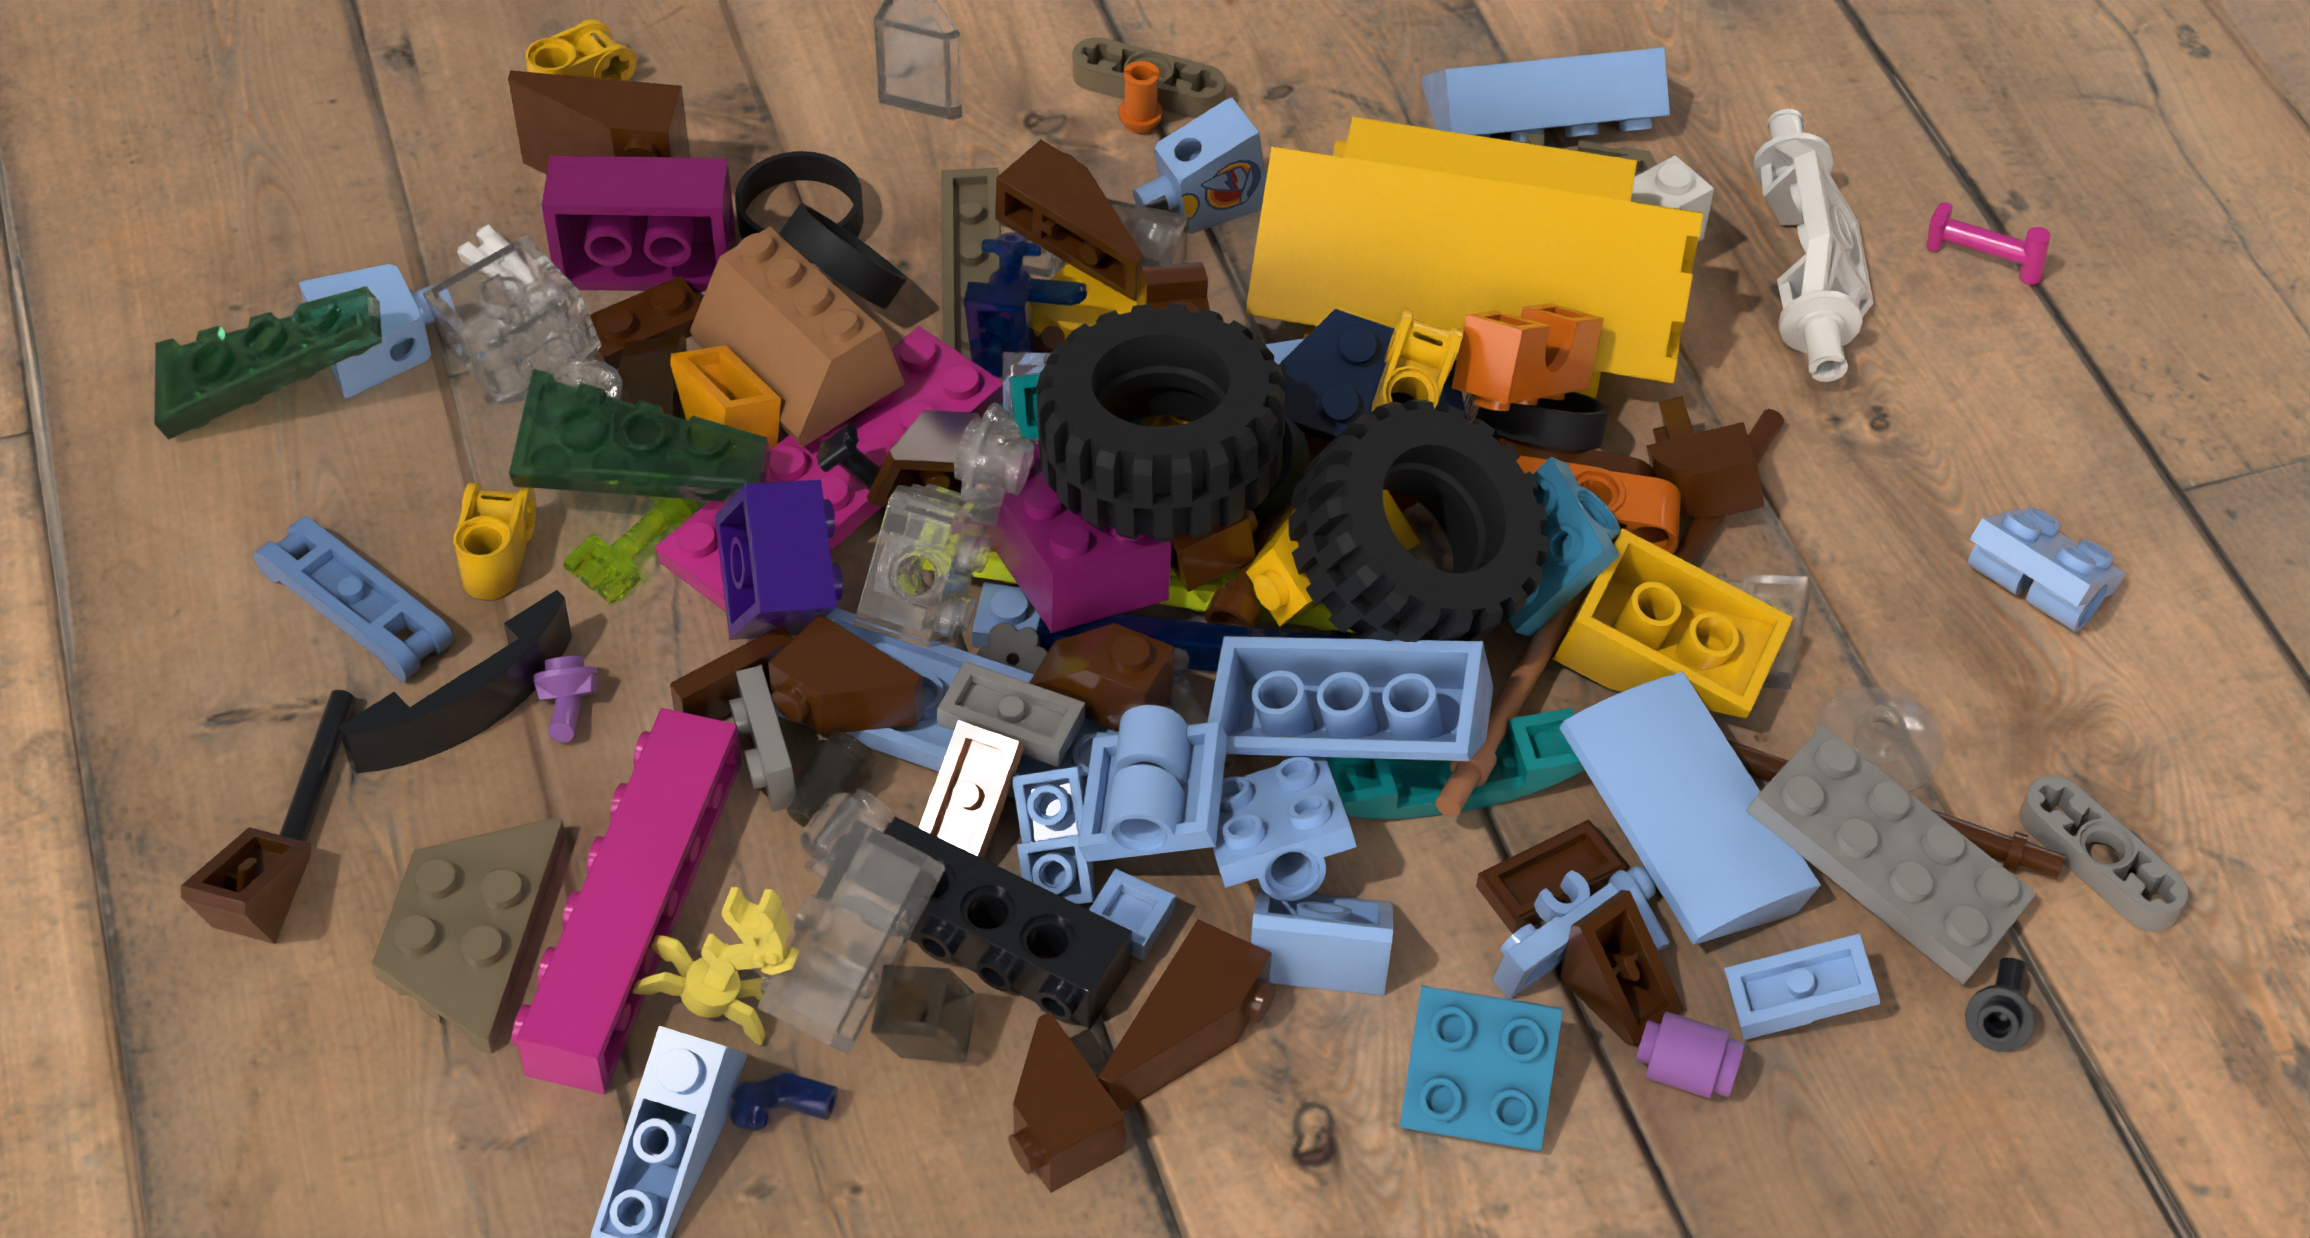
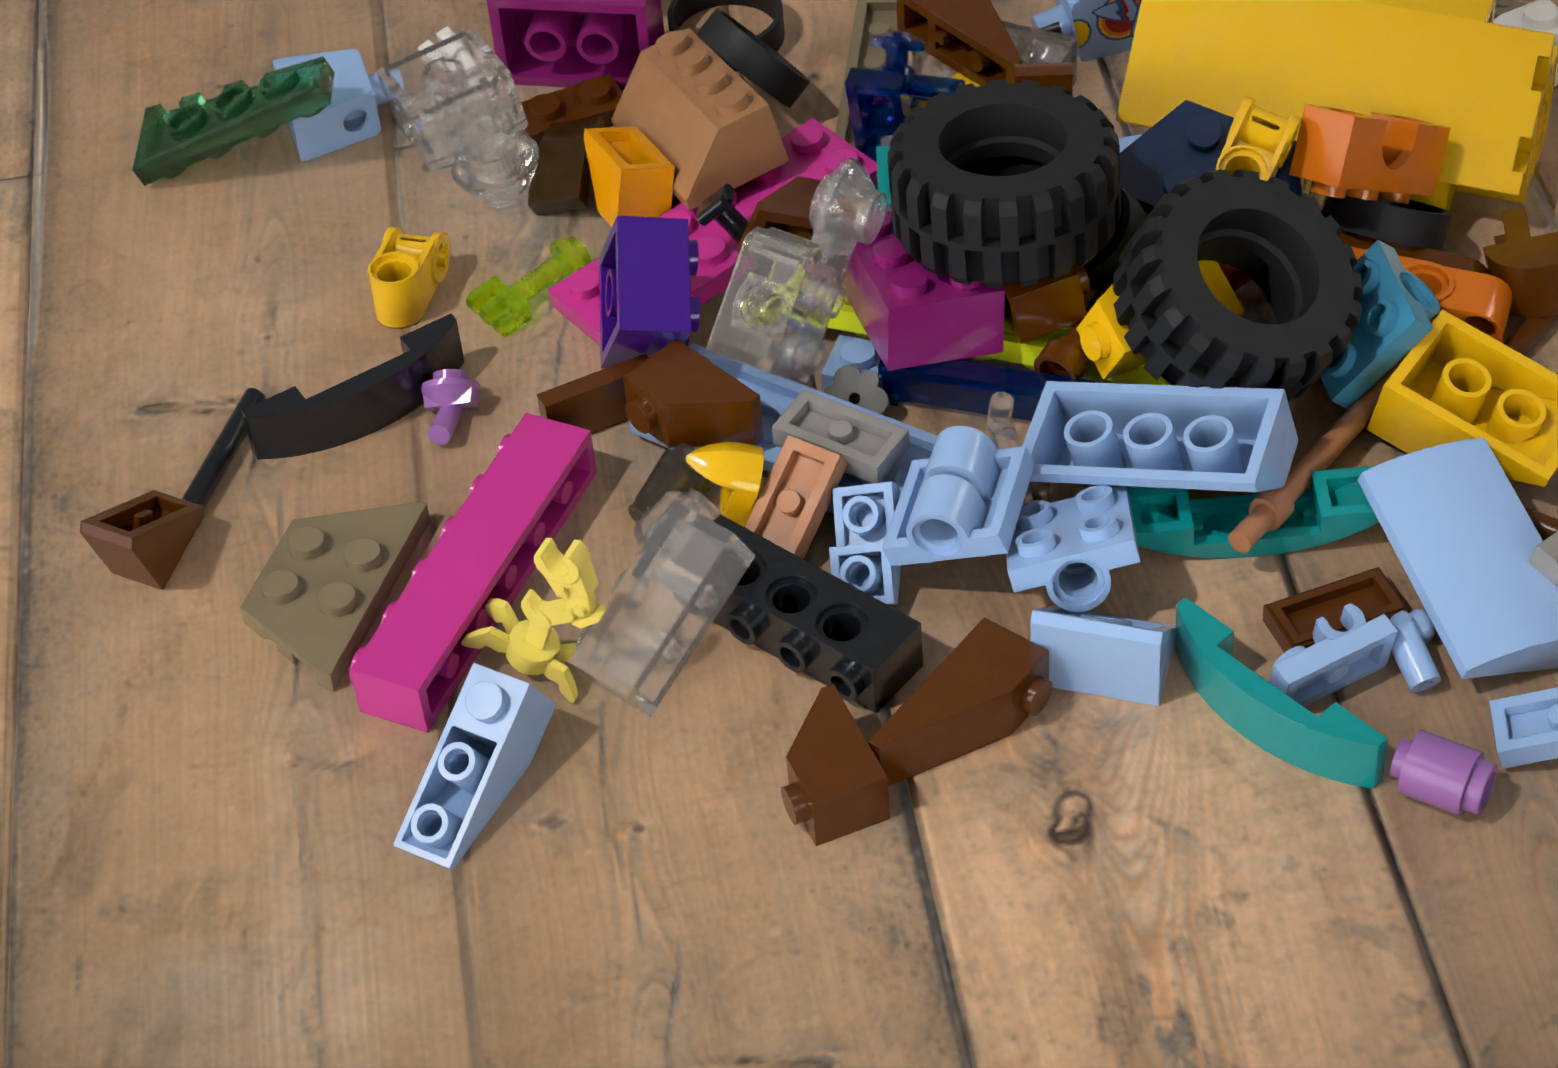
camera: 15 degrees right, 5 degrees down
(354, 596) = (279, 316): medium blue plate -> none
(606, 445) = (519, 200): clear green wing -> none
(756, 717) = (612, 432): light grey plate -> none
(780, 1090) = (583, 738): clear blue arm -> none
(905, 766) = (737, 470): none -> yellow plate
(924, 1013) = (719, 678): clear smoke brick -> none
(1109, 671) = (936, 400): reddish brown slope -> none
(1136, 907) = (938, 610): light blue plate -> none
(1427, 933) = (1327, 745): none -> teal slope
(1481, 1067) = (1235, 764): dark azure plate -> none
(1618, 969) = (1383, 684): reddish brown slope -> none

